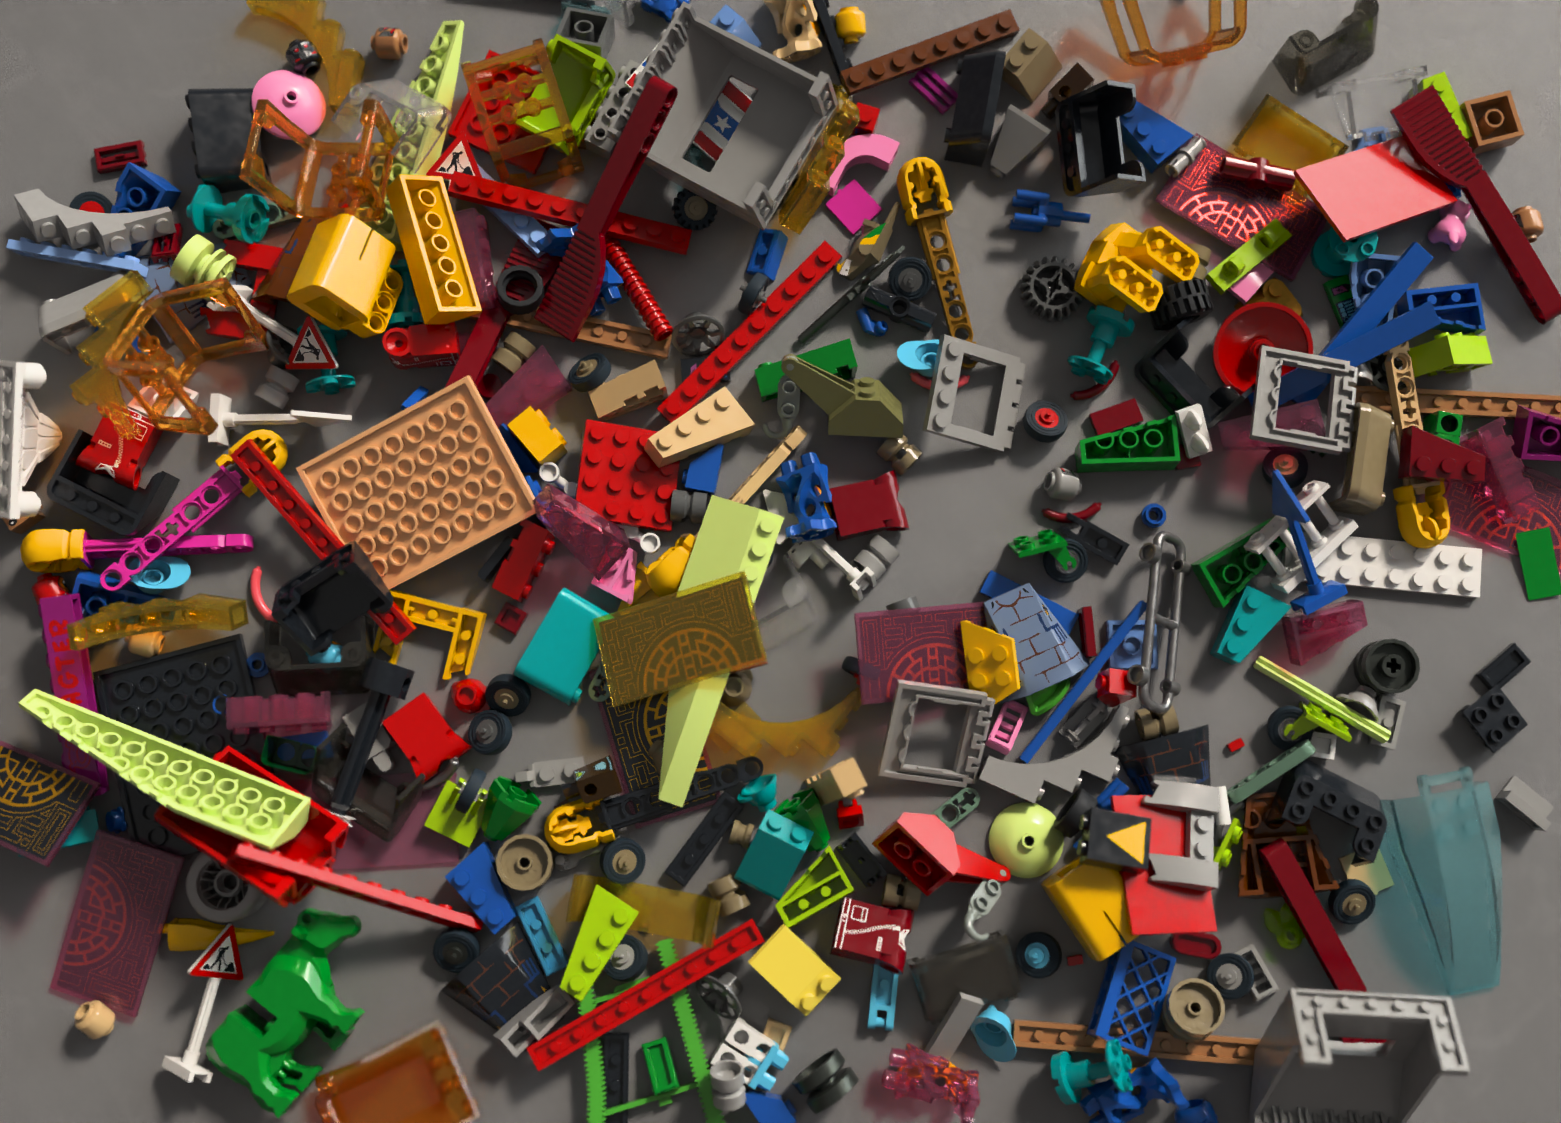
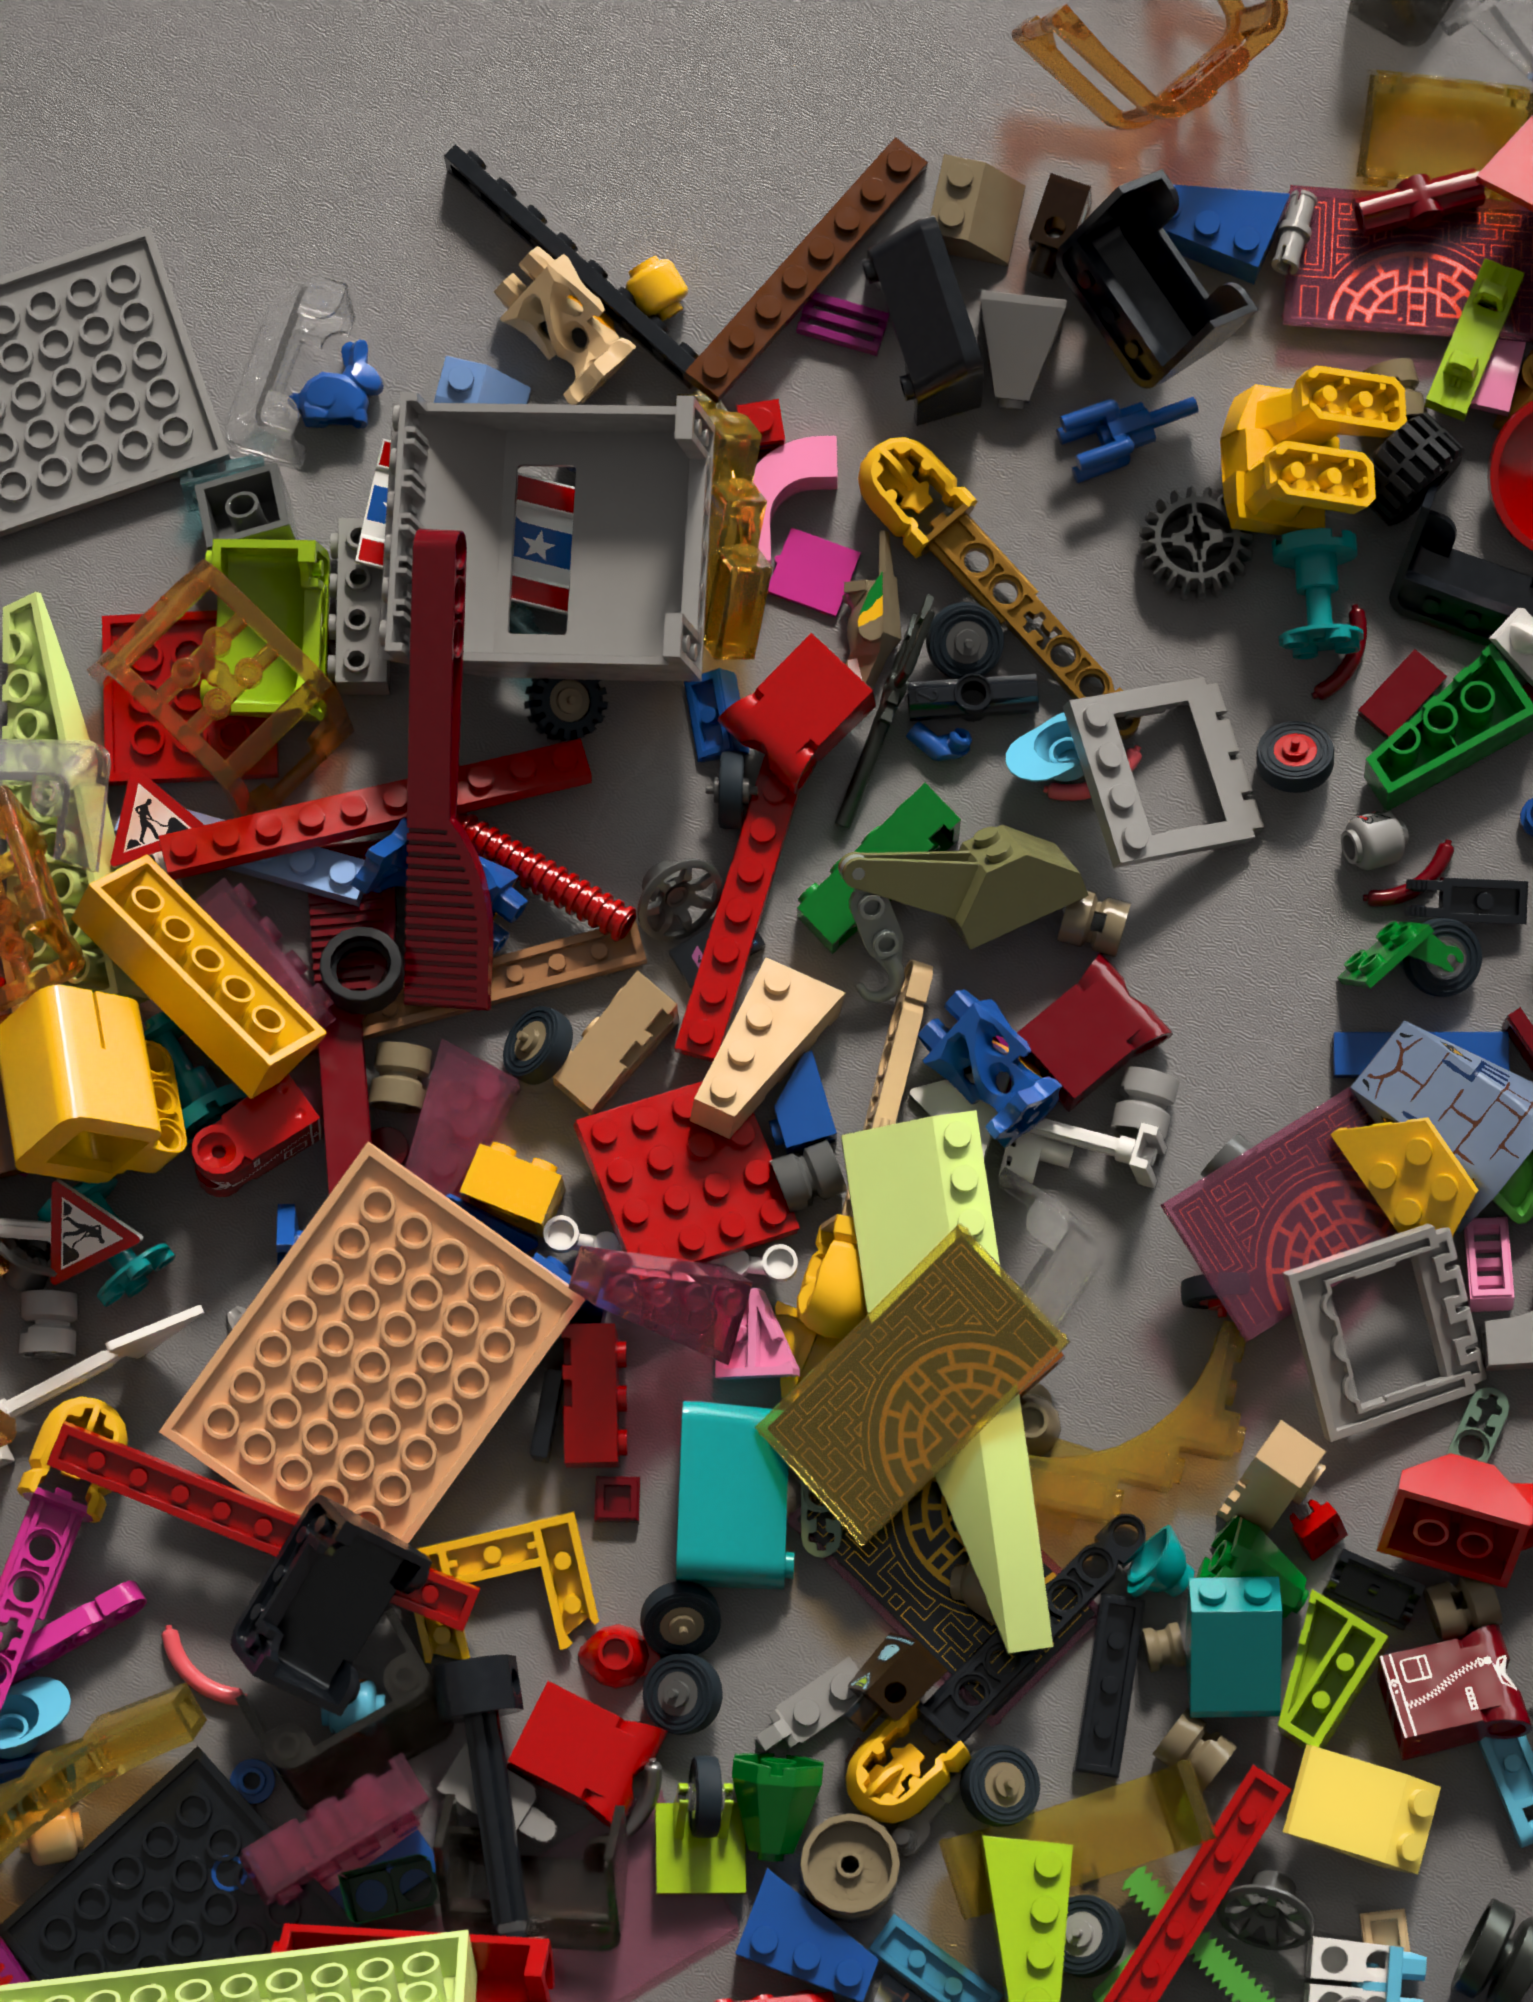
camera: 20 degrees left, 5 degrees down
(807, 271) = (800, 711): none -> red piece

